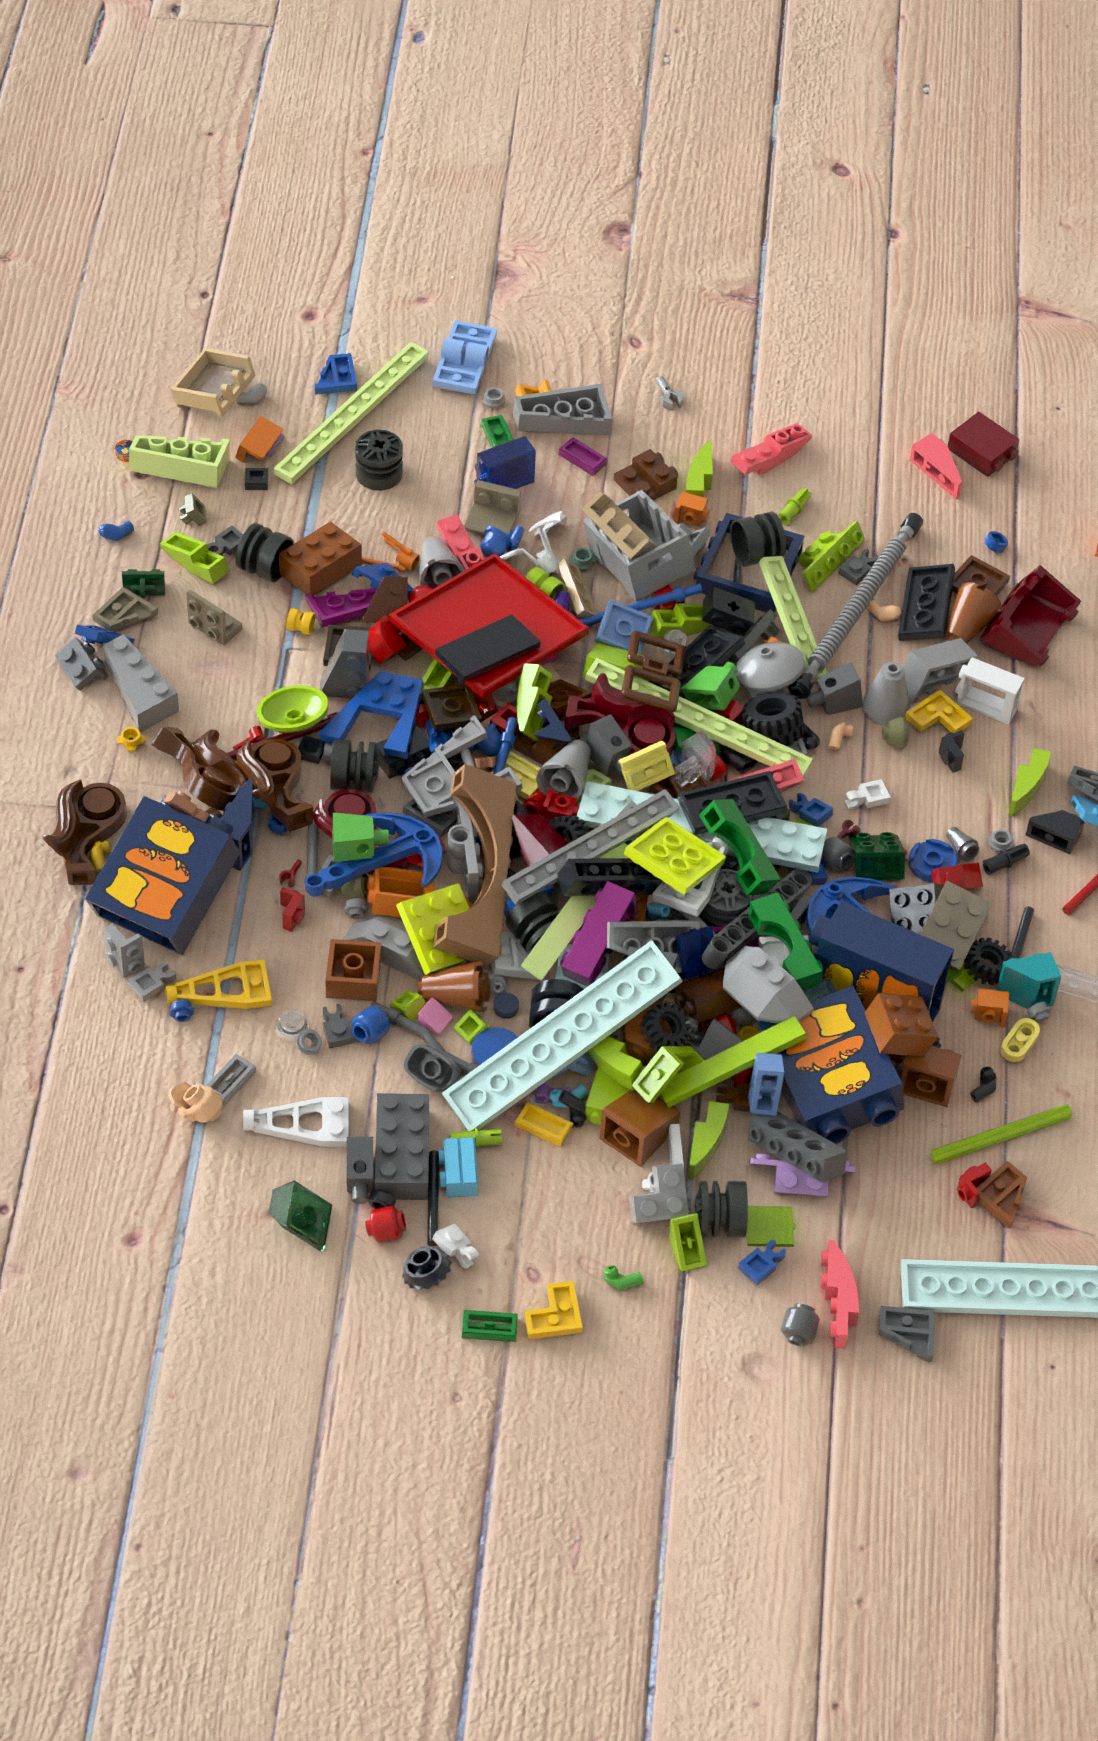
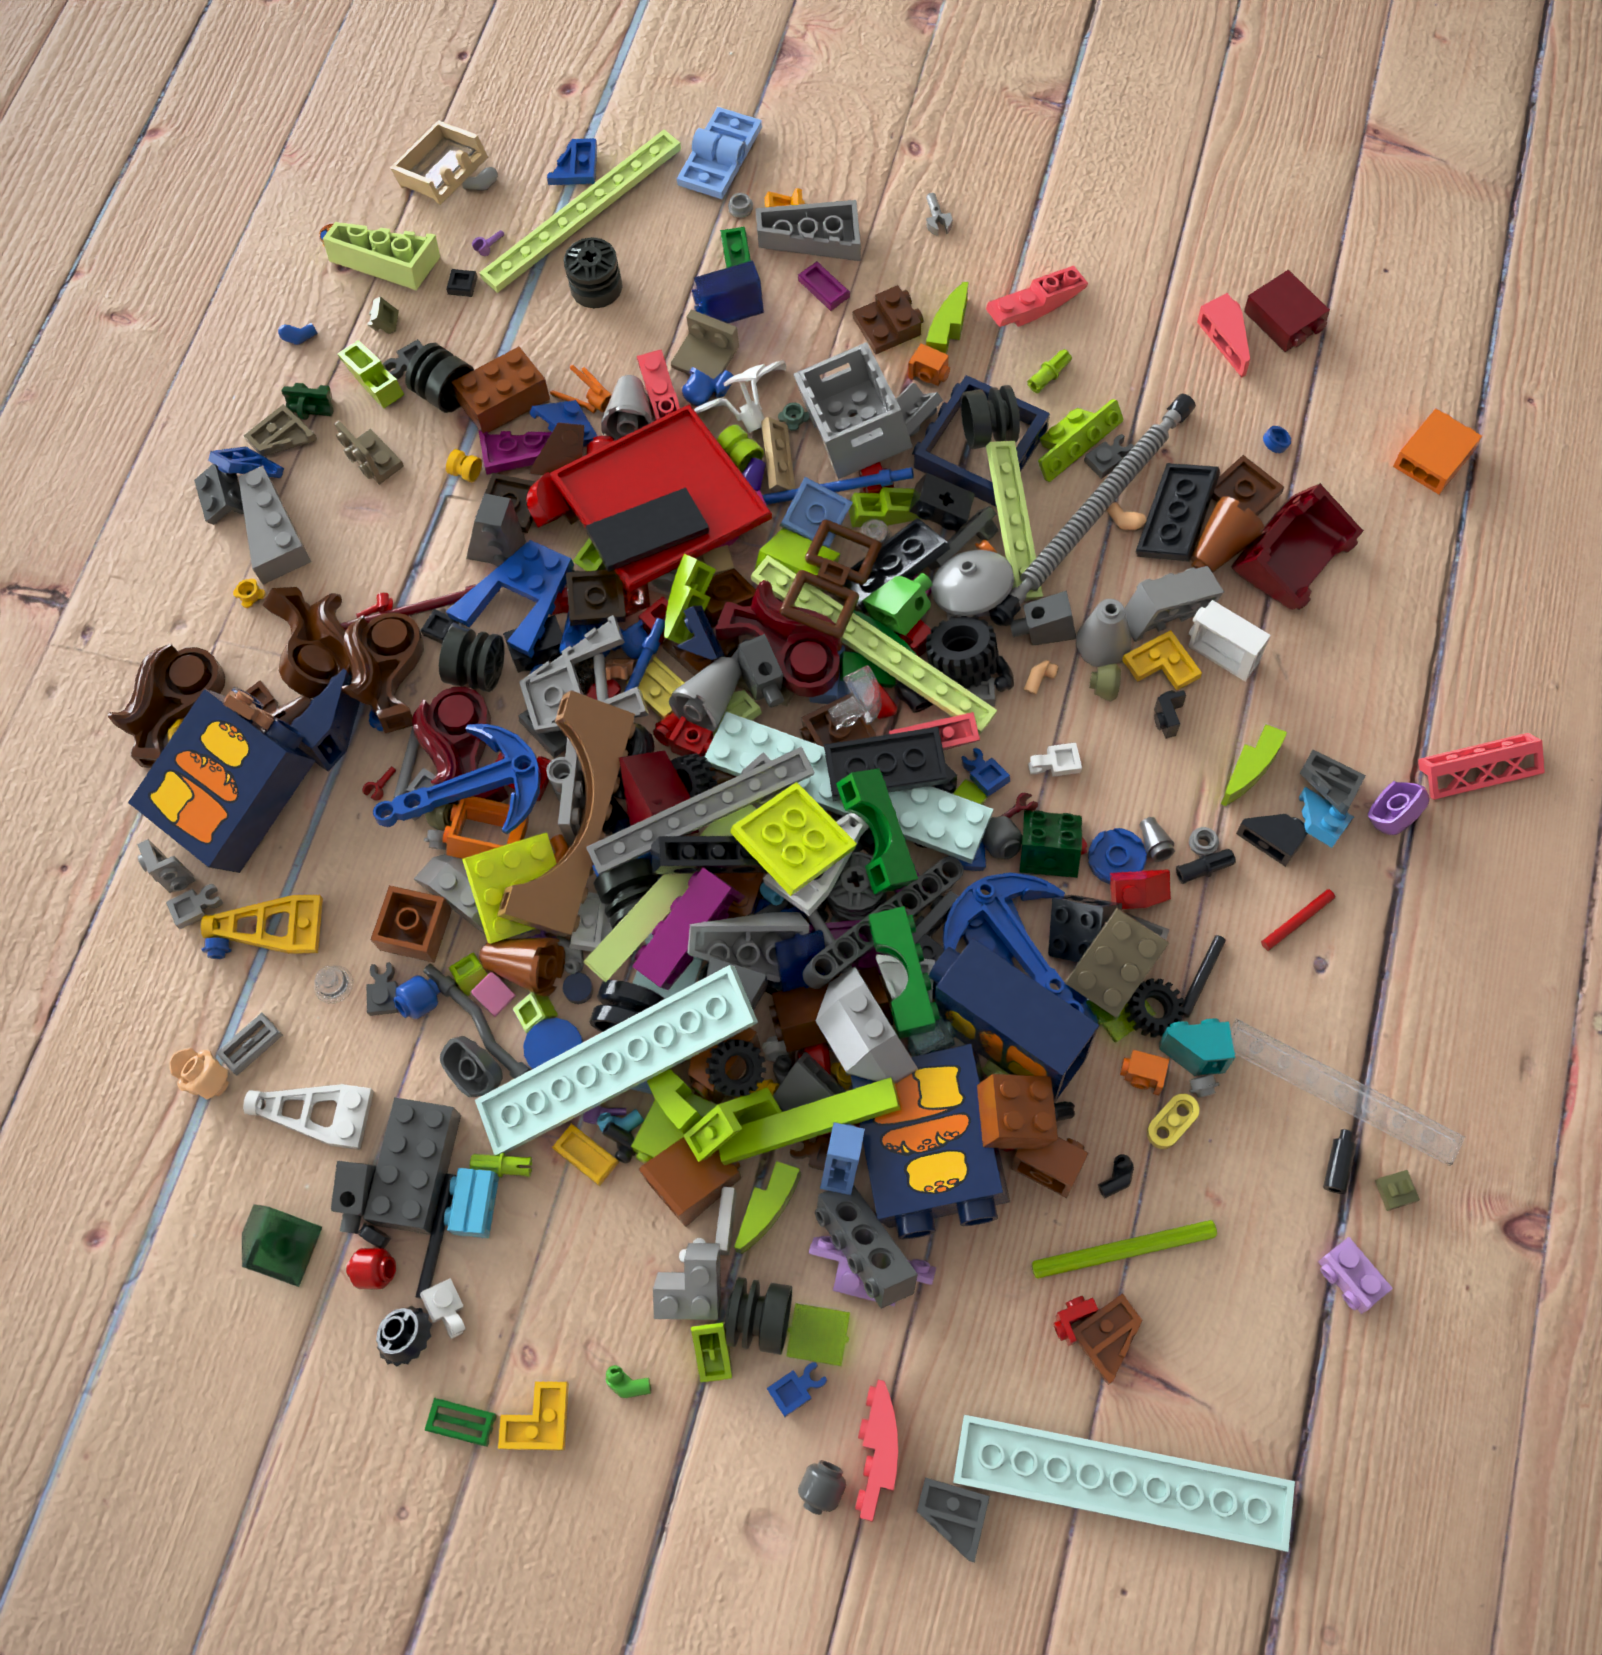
camera: 20 degrees right, 15 degrees up
(259, 439) = (471, 236): orange panel -> none
(292, 708) = (424, 577): lime dish -> none
(294, 908) = (368, 835): red bracket -> none
(315, 1039) = (344, 1017): light grey plate -> none
(355, 837) = (439, 761): bright green torso -> none
(618, 526) = (825, 389): tan window -> none
(646, 766) = (796, 703): light yellow plate -> none

